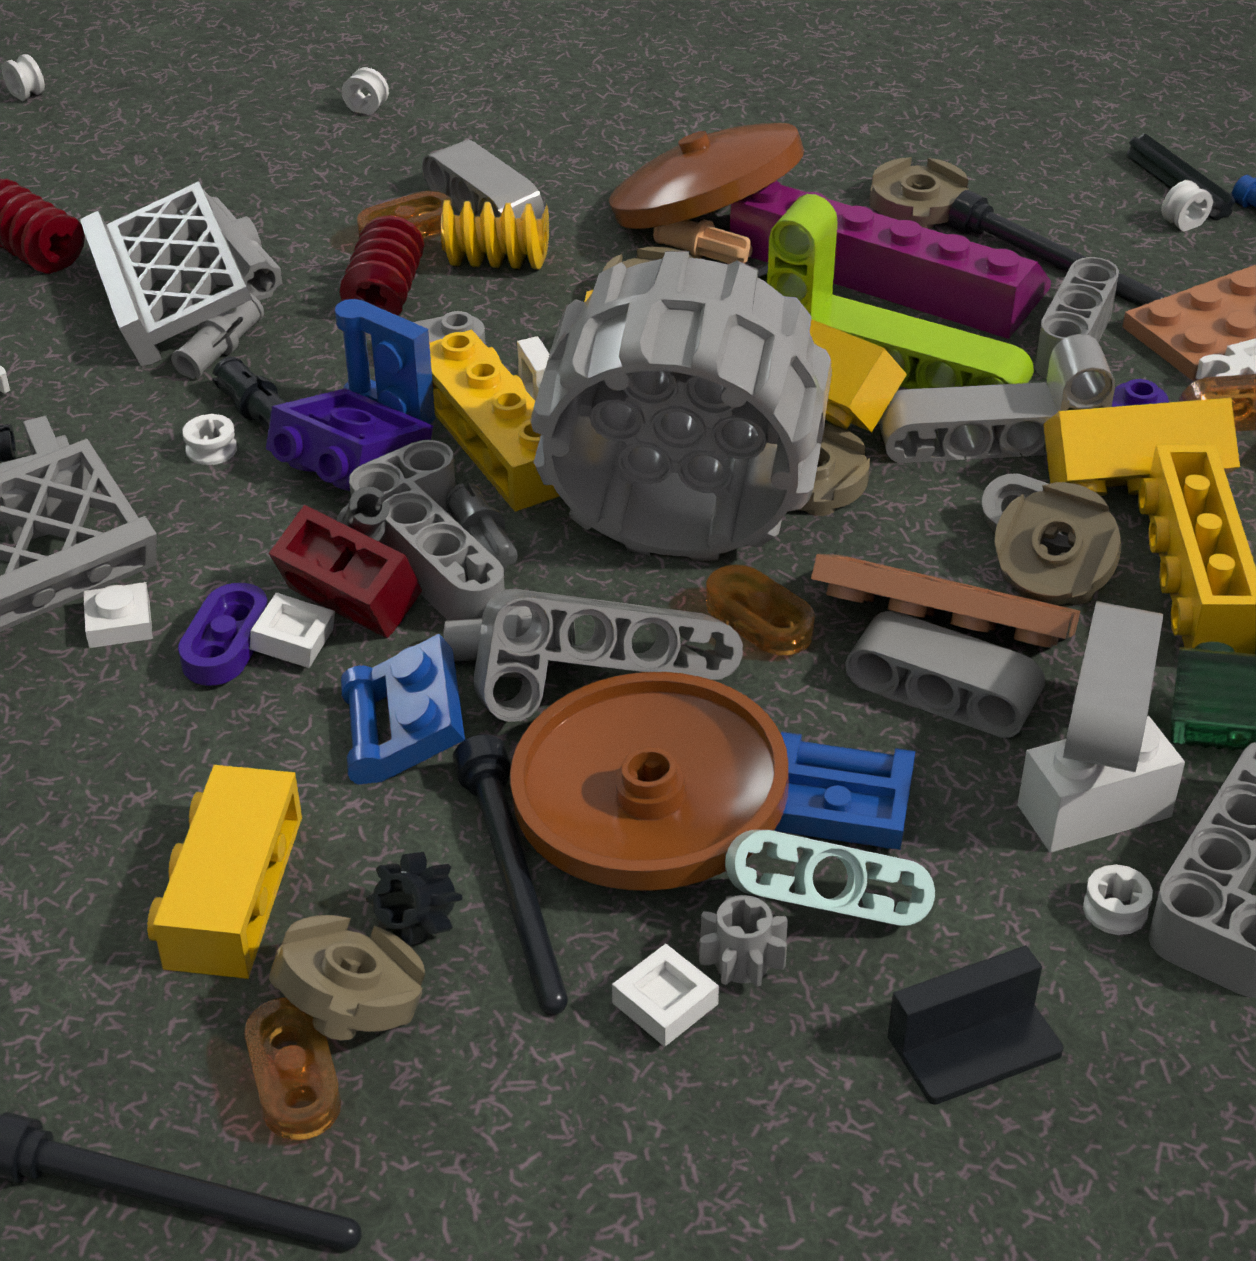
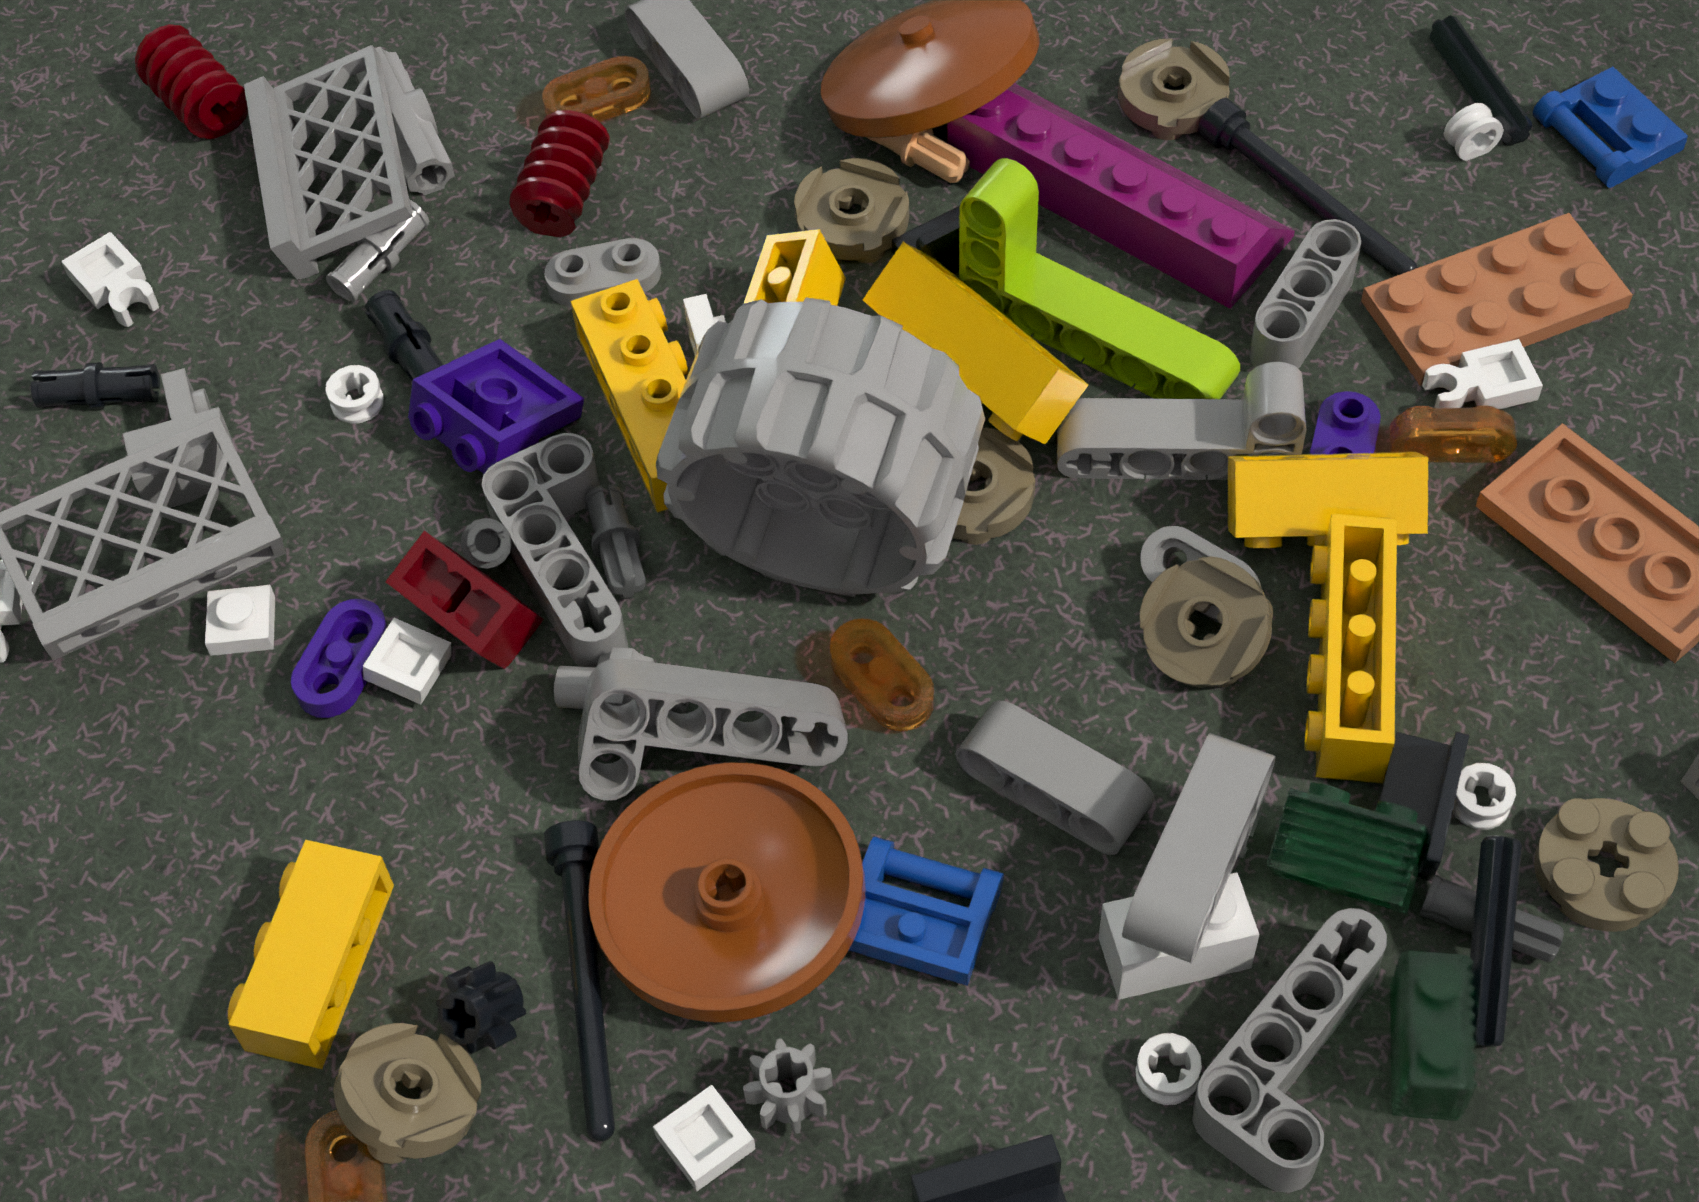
camera: 10 degrees right, 15 degrees up
(399, 358) = (540, 321): blue plate -> none
(420, 704) = (519, 775): blue plate -> none
(494, 236) = (687, 131): yellow piece -> none
(882, 868) = (935, 1024): light aqua beam -> none
(922, 594) = (1072, 685): nougat plate -> none

